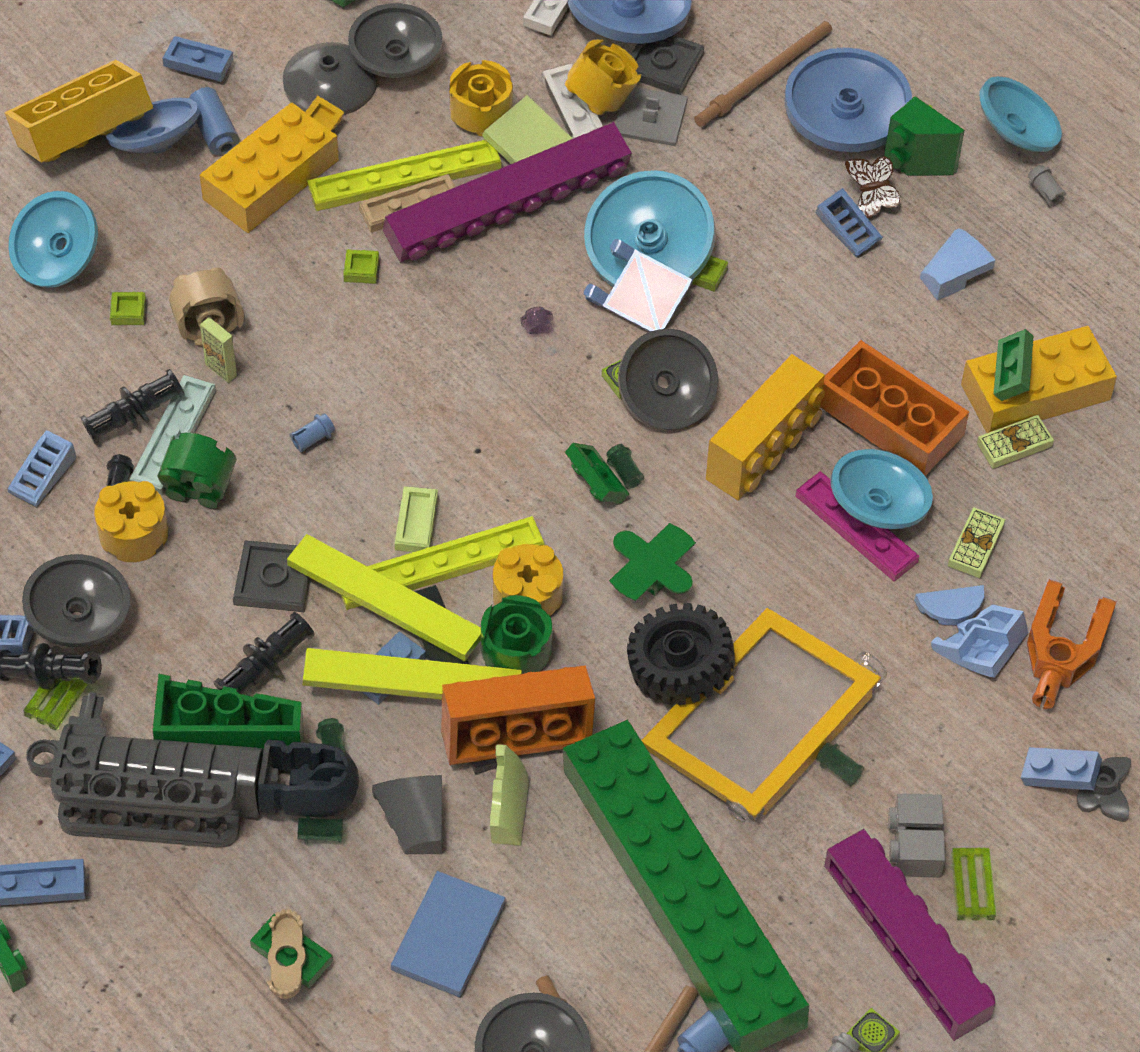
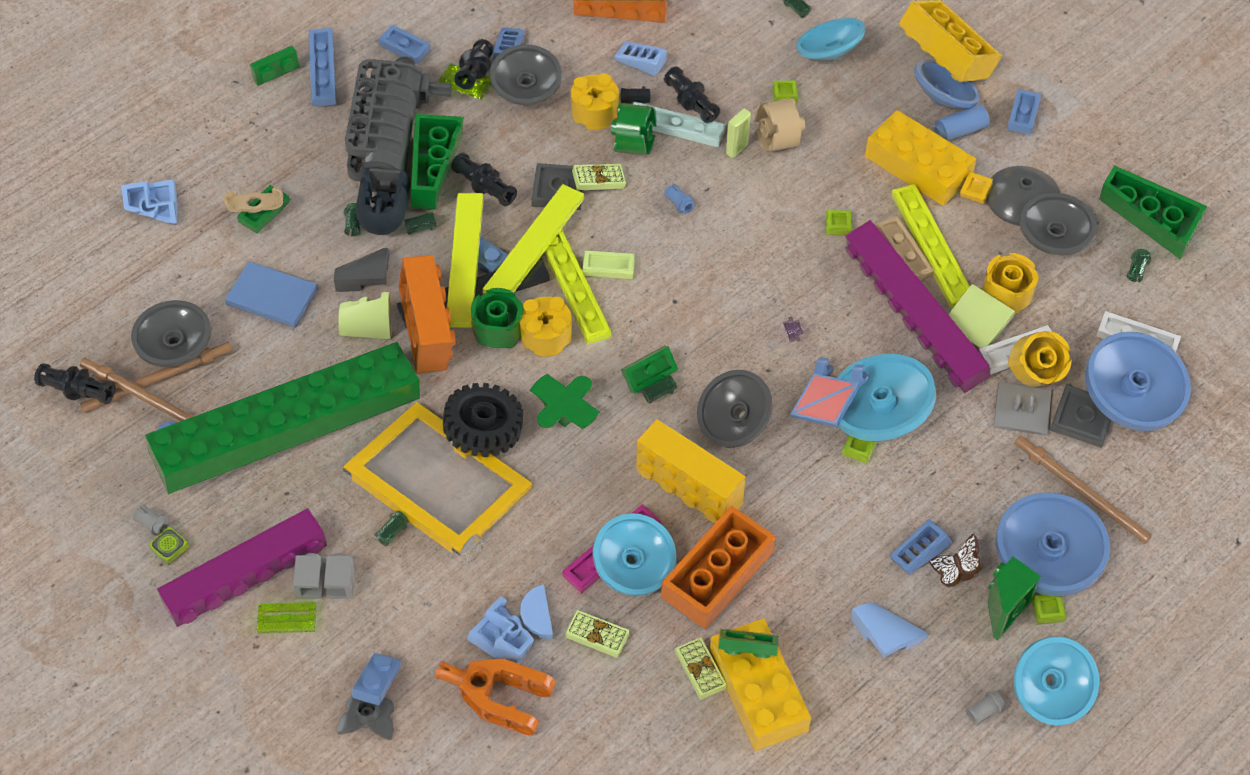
camera: 90 degrees right, 0 degrees up
(268, 522) = (598, 177): none -> yellowish green tile

